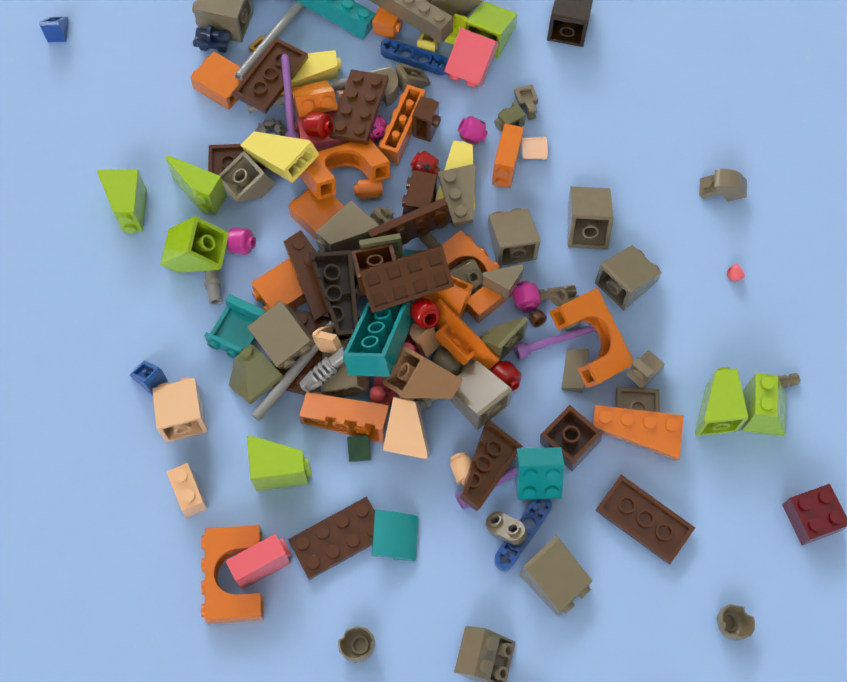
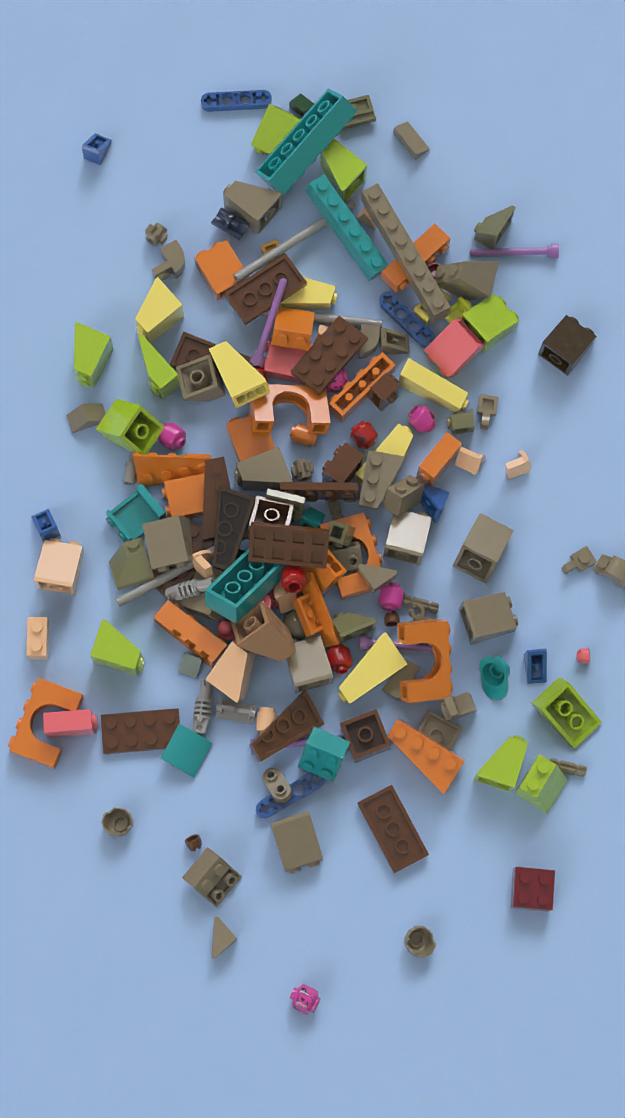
camera: 20 degrees right, 10 degrees up
(144, 74) = (156, 234): none -> dark tan gear
(144, 259) = (85, 416): none -> dark tan slope
(170, 92) = (174, 261): none -> dark tan brick
(177, 133) = (158, 312): none -> light yellow slope
(236, 274) = (155, 469): none -> orange wing
(279, 128) = (253, 340): light grey gear -> none
(317, 125) = (283, 359): red head -> none
(392, 484) = (202, 708): none -> light grey hinge
(427, 473) = (236, 711): none -> light grey hinge
(447, 628) = (193, 842): none -> reddish brown hinge
(453, 253) = (340, 533): none -> olive brick
(468, 98) = (432, 387): none -> light yellow slope
(491, 198) = (403, 495): none -> dark tan brick
(519, 194) = (433, 501): none -> blue slope
(545, 367) = (376, 666): none -> light yellow slope
(582, 135) = (518, 466): none -> light nougat tile
(665, 328) = (494, 677): none -> teal piece
(683, 192) = (581, 560): none -> dark tan plate
(696, 299) = (536, 666): none -> blue slope
(749, 330) = (566, 712): none -> lime slope

